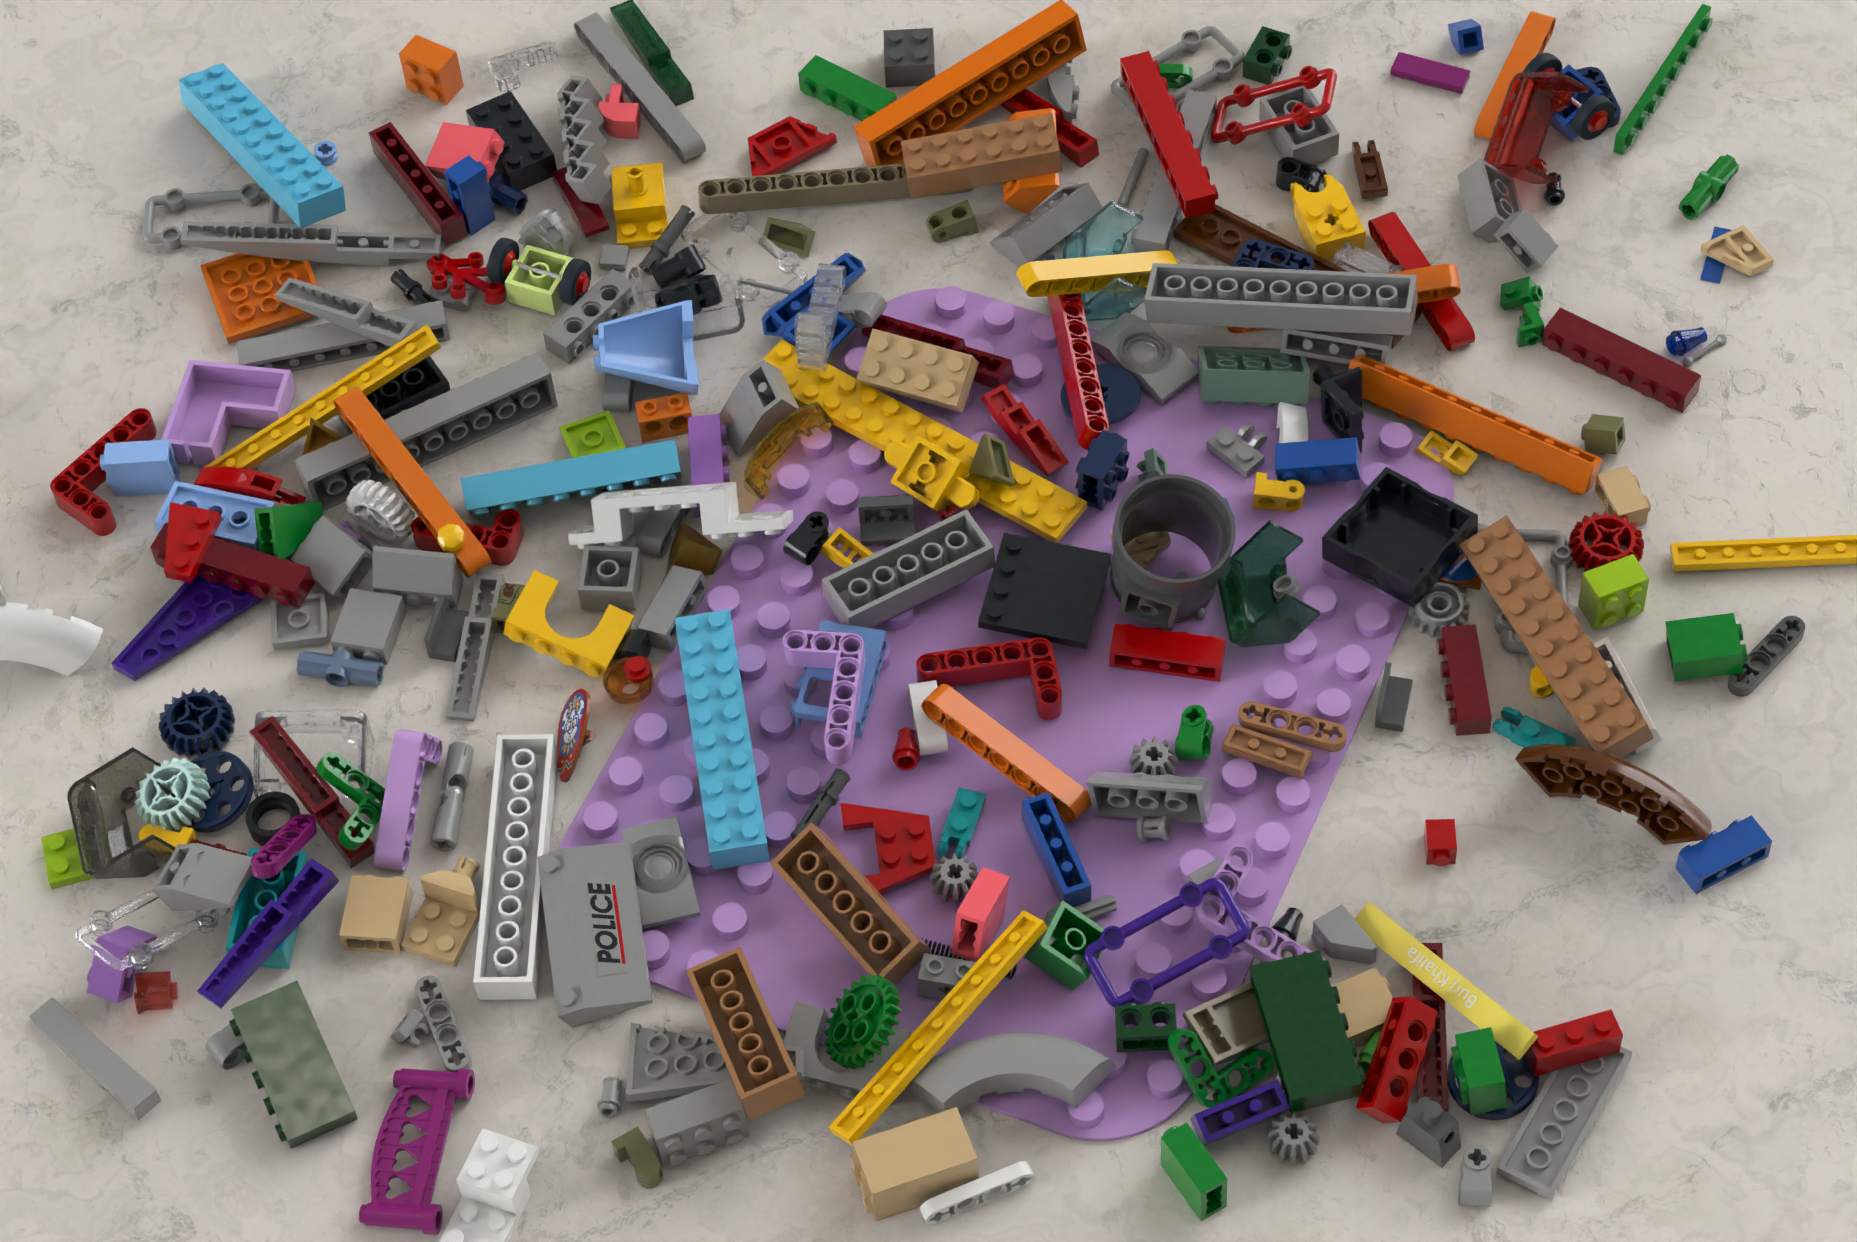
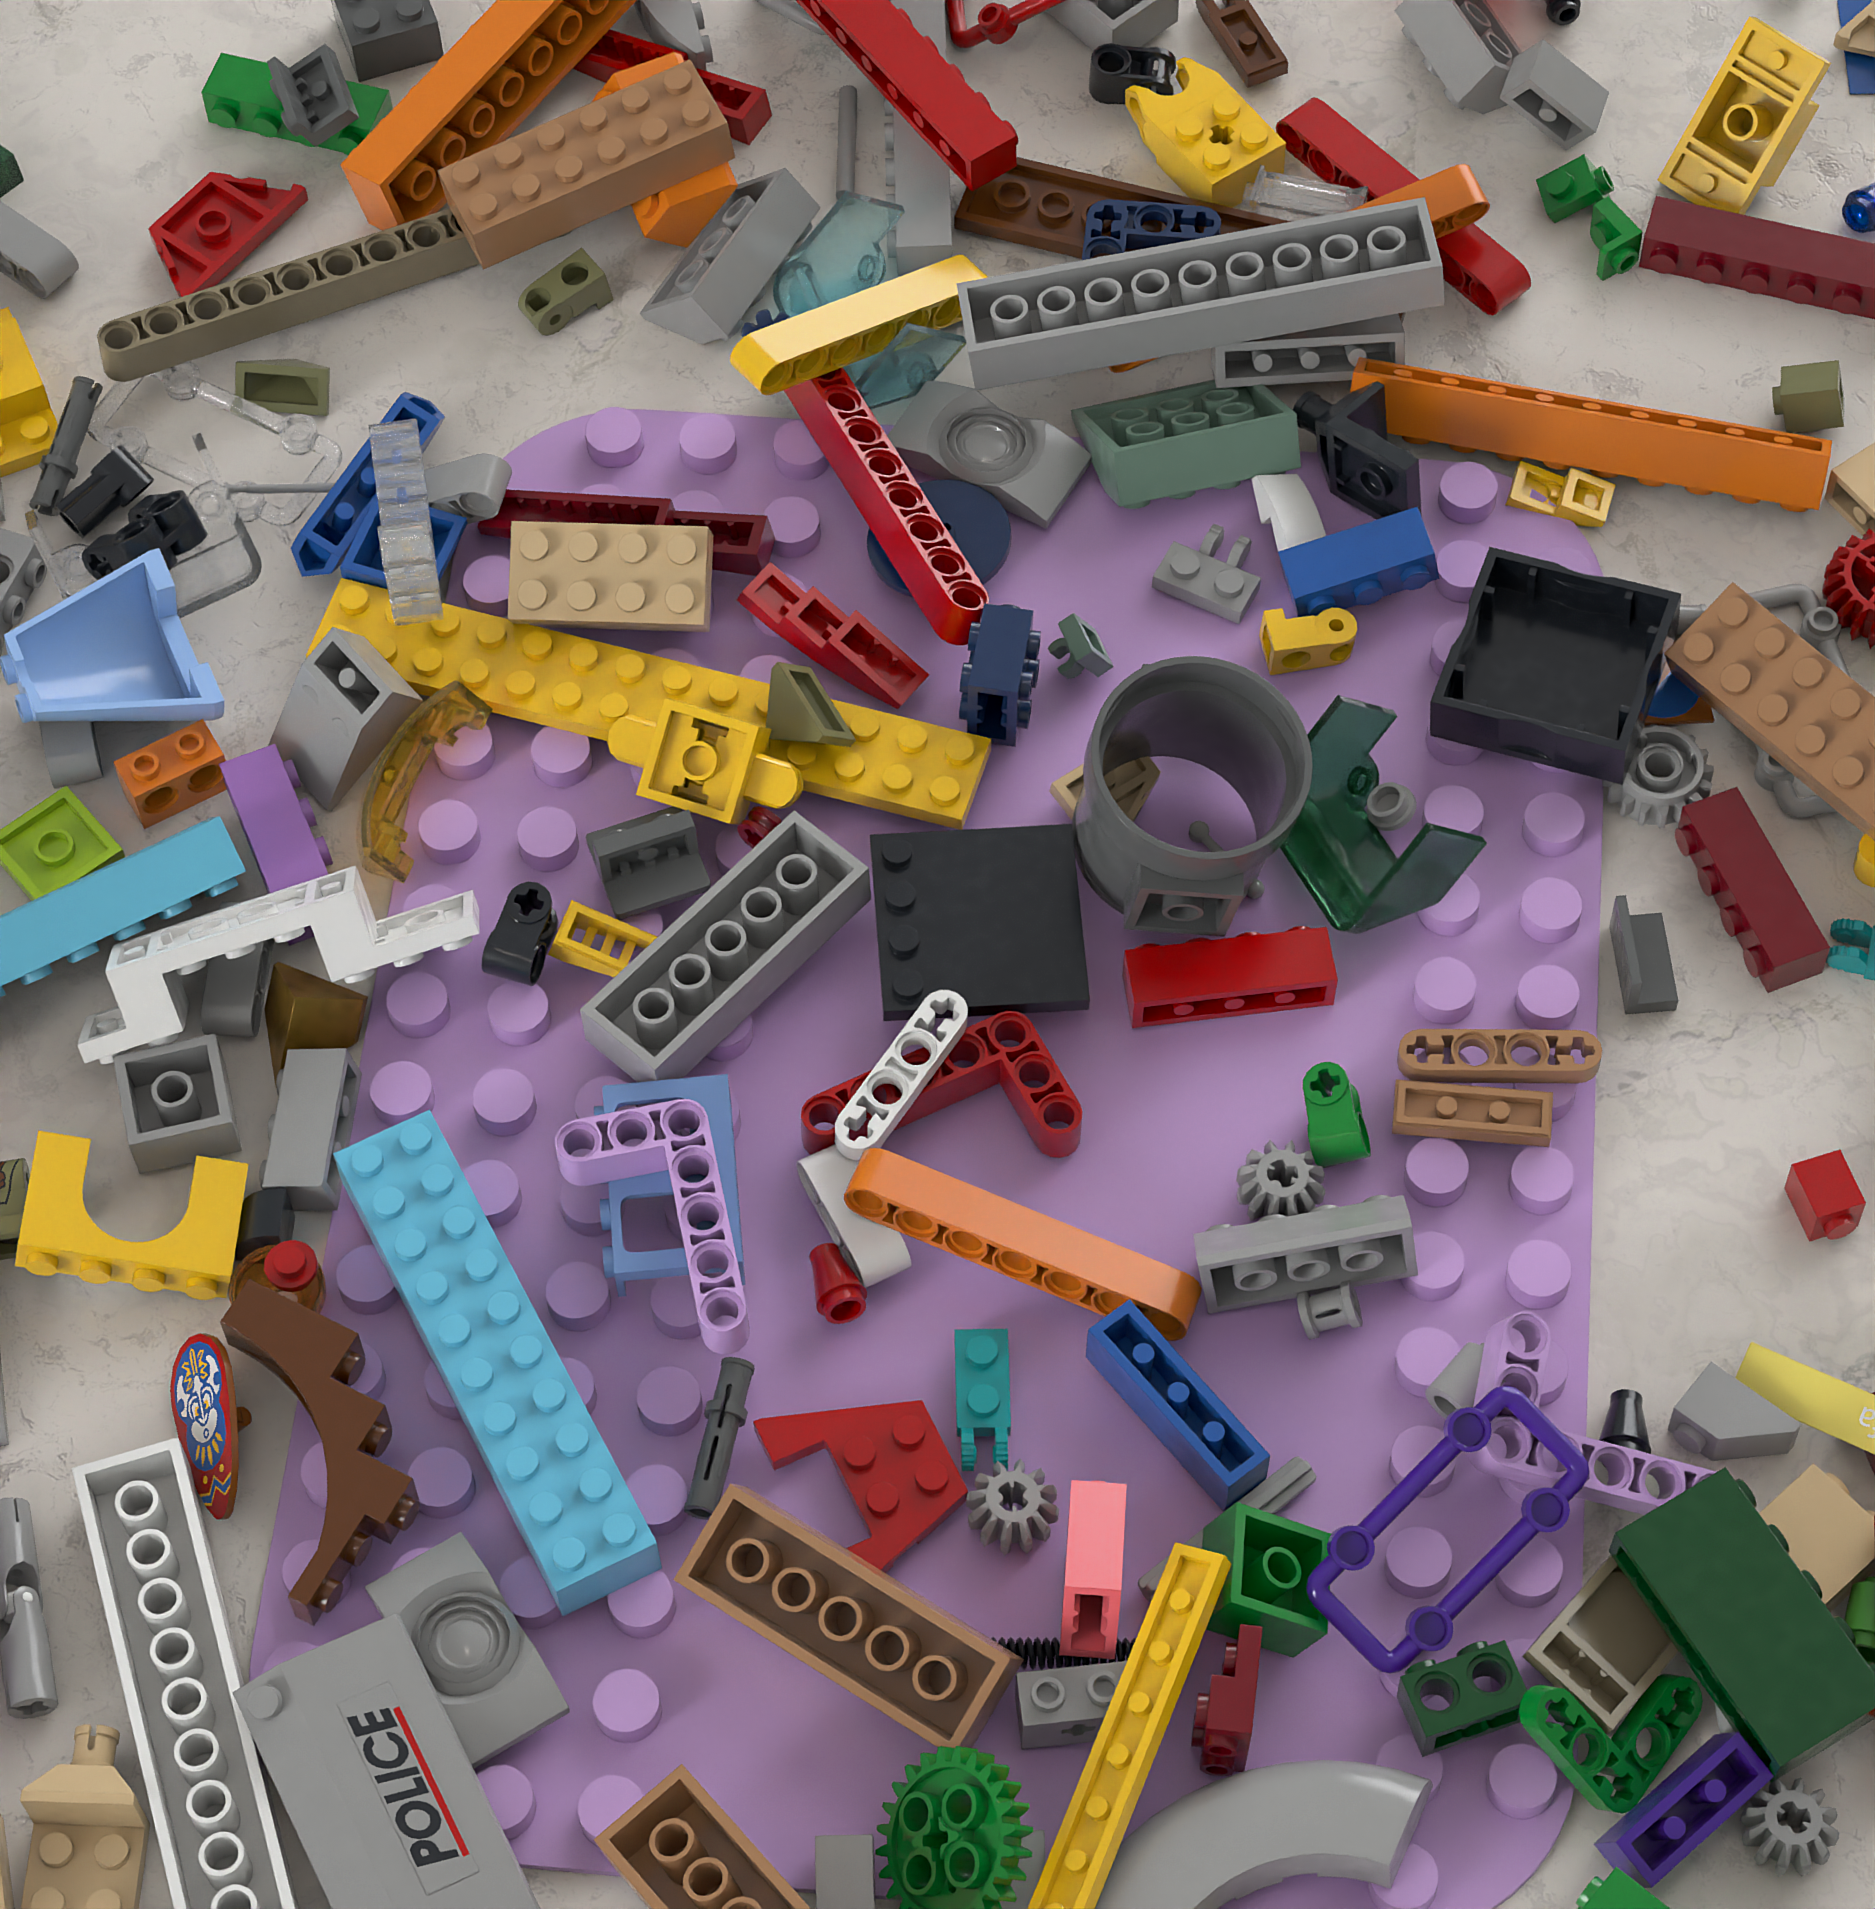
camera: 20 degrees left, 5 degrees up
(633, 784) = (363, 1494): none -> reddish brown arch
(853, 87) = (313, 95): none -> dark grey bracket
(977, 656) = (896, 1071): none -> white beam
(1027, 998) = (1227, 1713): none -> dark red plate
(1624, 279) = (1747, 120): none -> yellow brick

